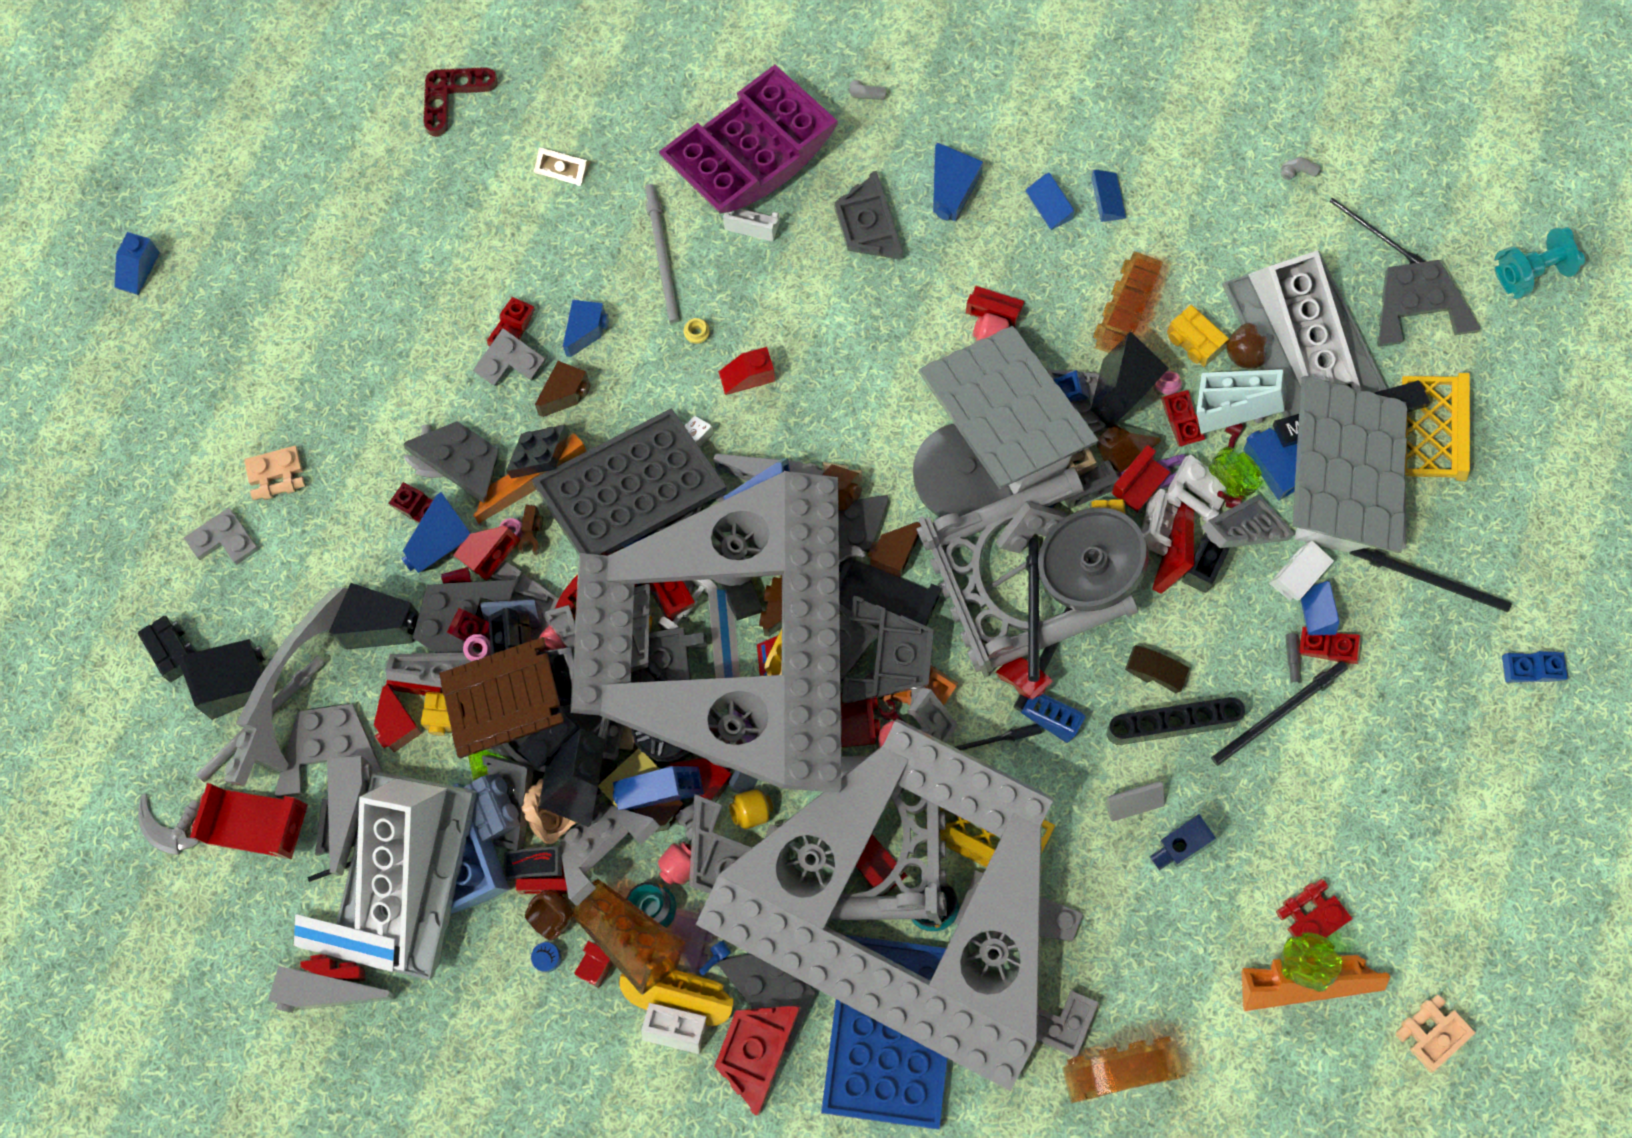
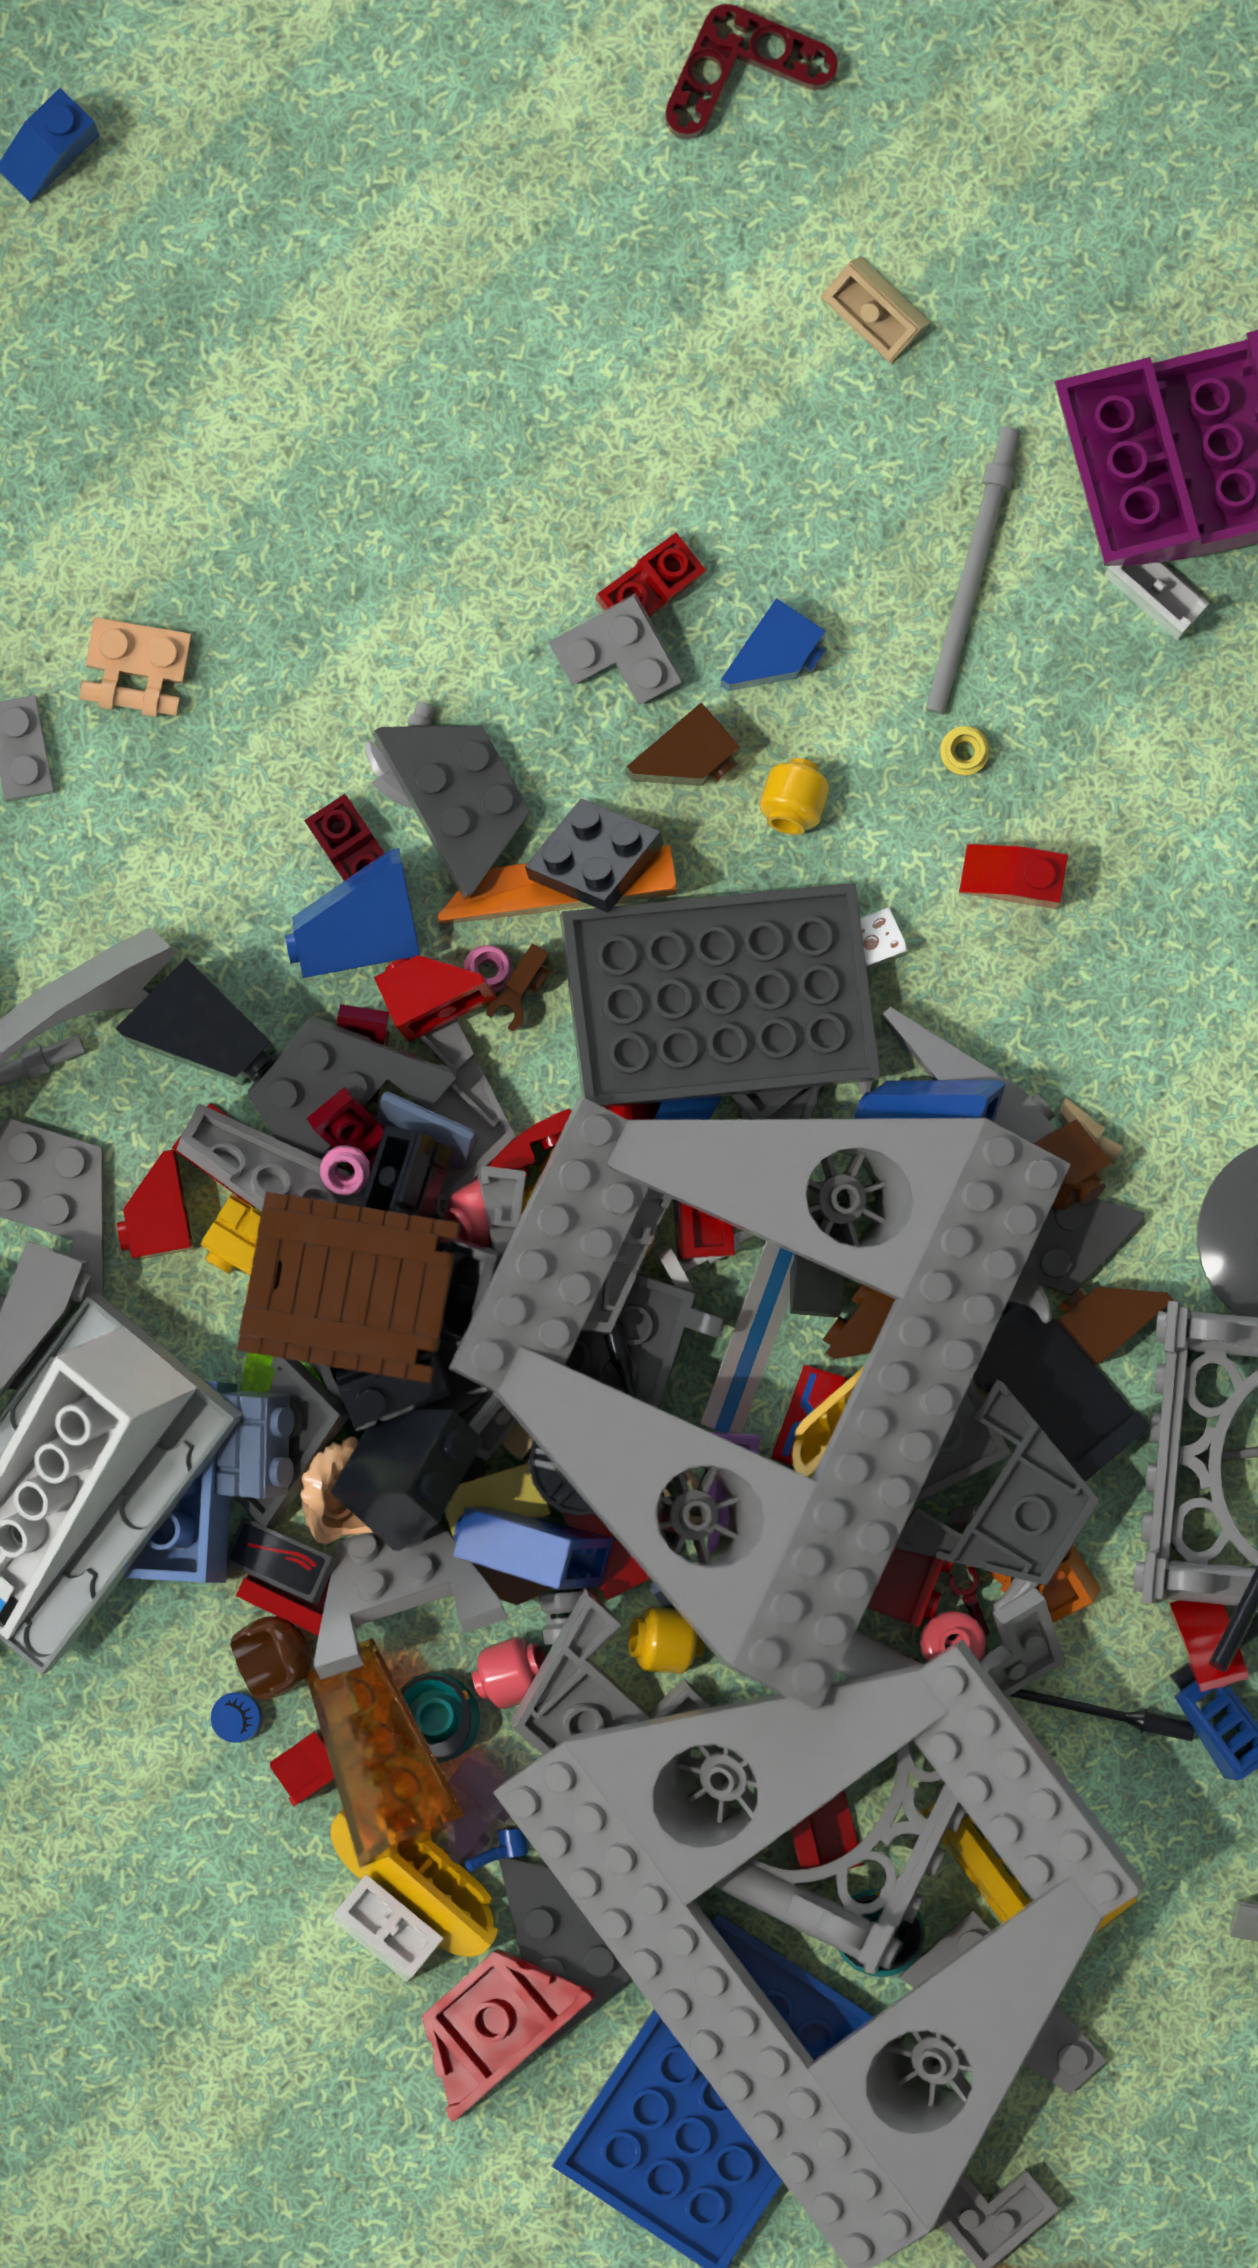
camera: 20 degrees right, 15 degrees up
(624, 385) = (794, 796): none -> yellow head

